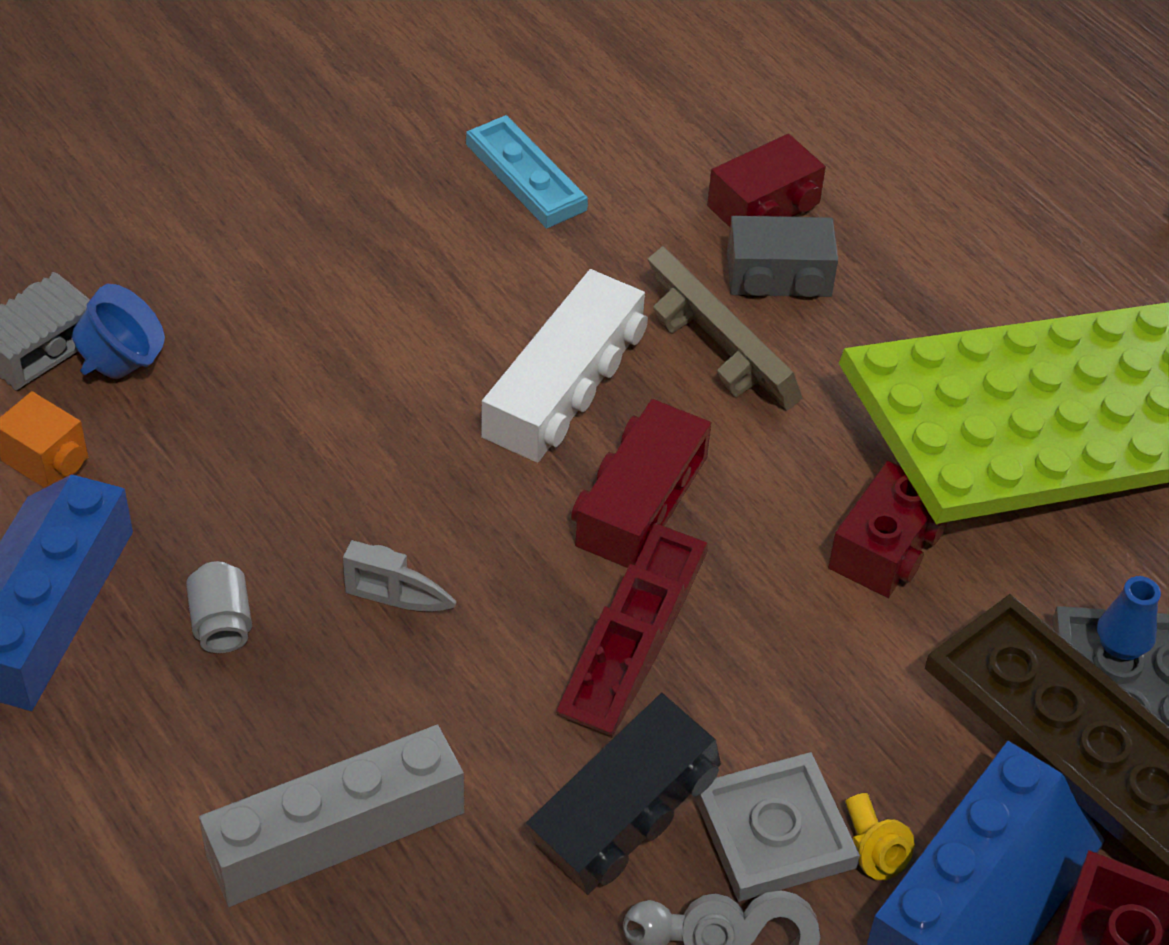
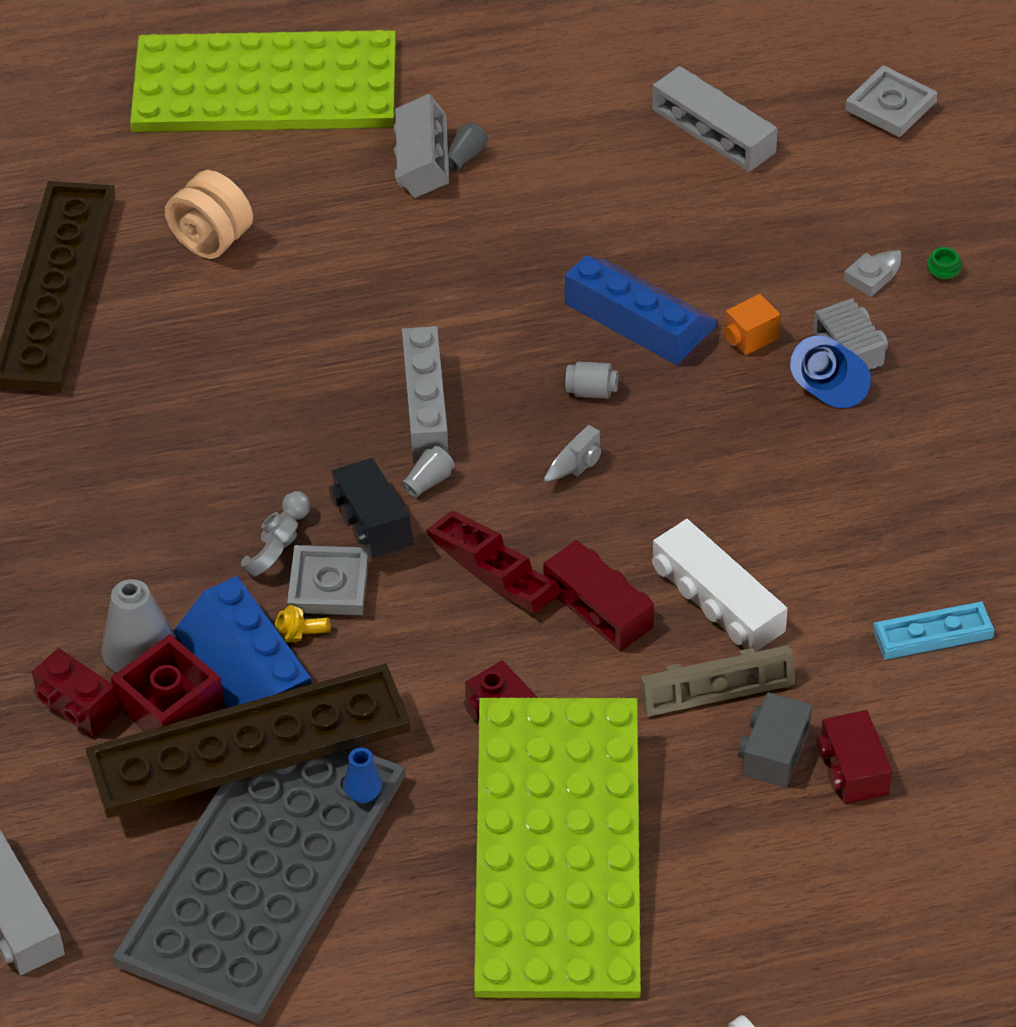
camera: 115 degrees right, 0 degrees up
(496, 763) = (428, 471): none -> light grey cone

